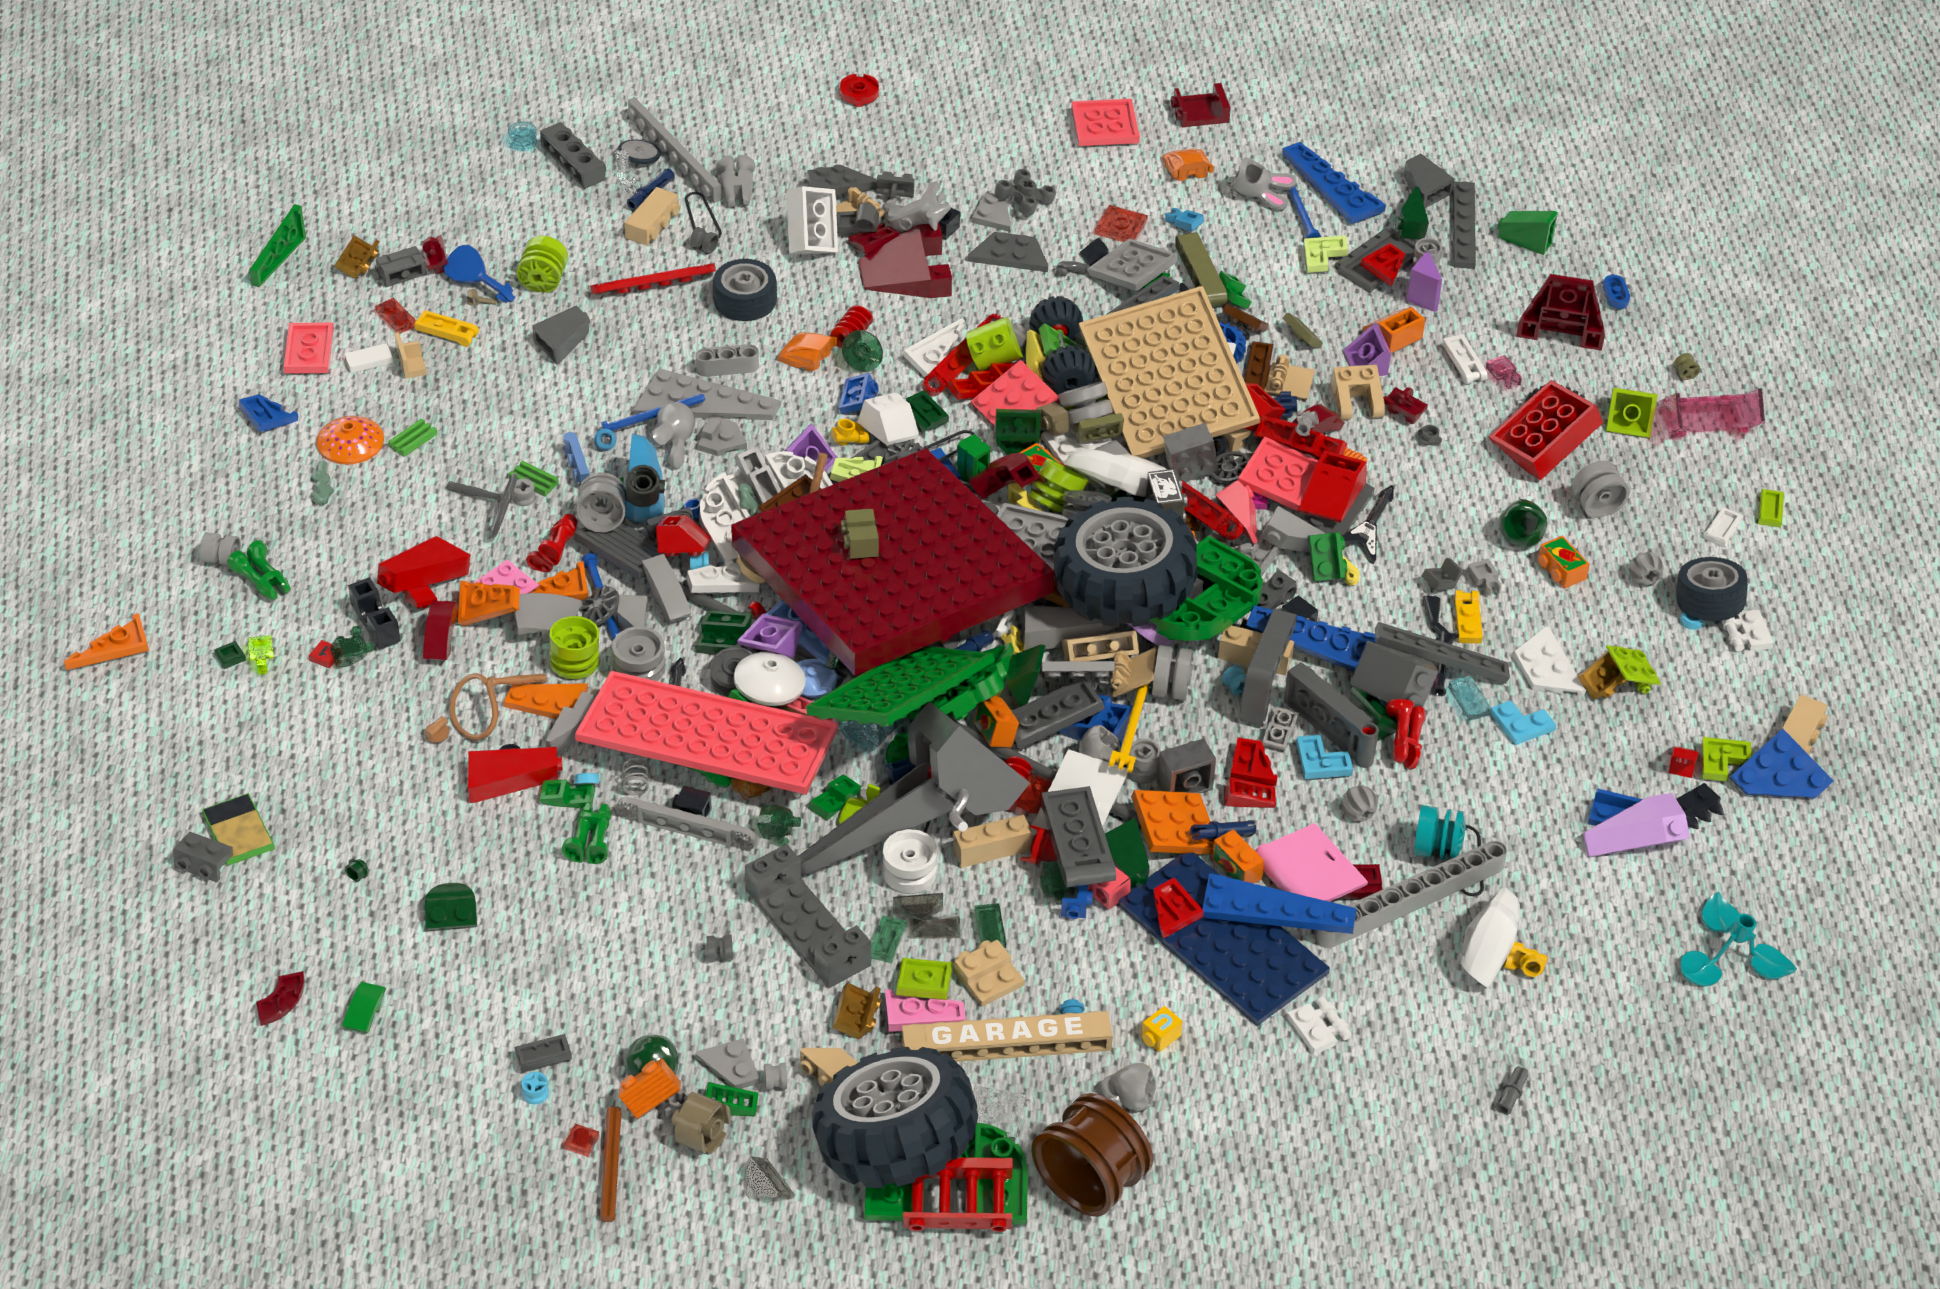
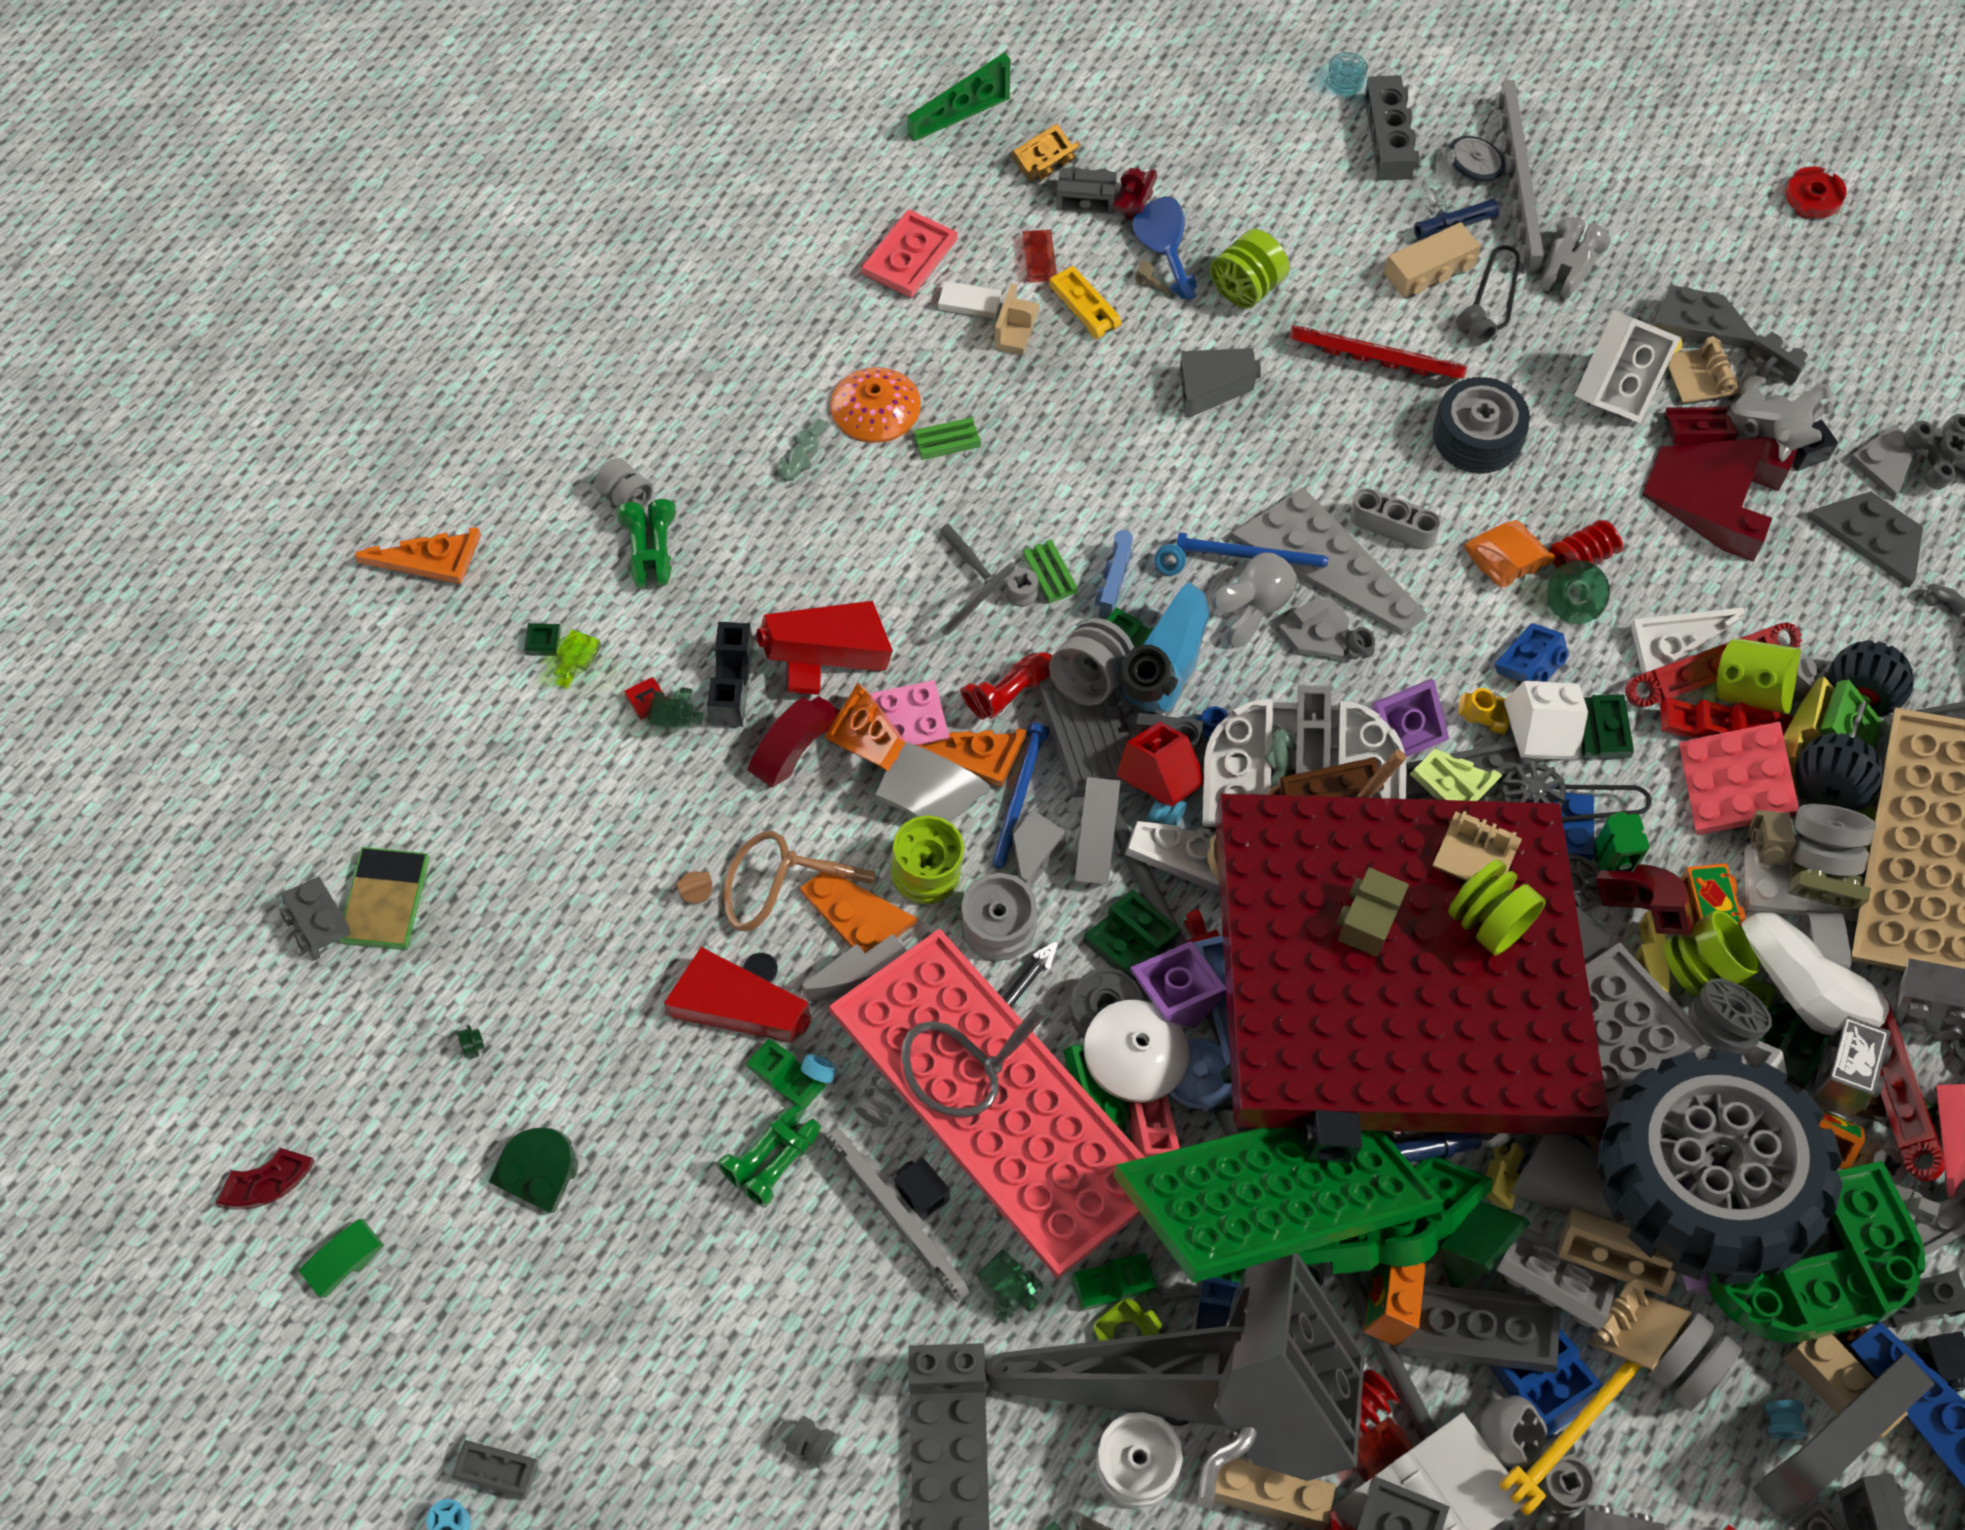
camera: 35 degrees right, 15 degrees up
(265, 413) = (803, 321): blue wing -> none
(601, 601) = (1004, 809): dark grey wheel -> none
(694, 713) = (992, 1064): none -> dark grey piece
(751, 431) = (1359, 642): none -> dark grey plate
(862, 220) = (1695, 393): dark grey plate -> none
(897, 484) = (1473, 845): none -> tan hinge
(913, 648) = (1332, 1136): none -> black brick
(923, 497) = (1489, 901): none -> lime wheel
(1017, 429) = (1711, 829): dark green slope -> none

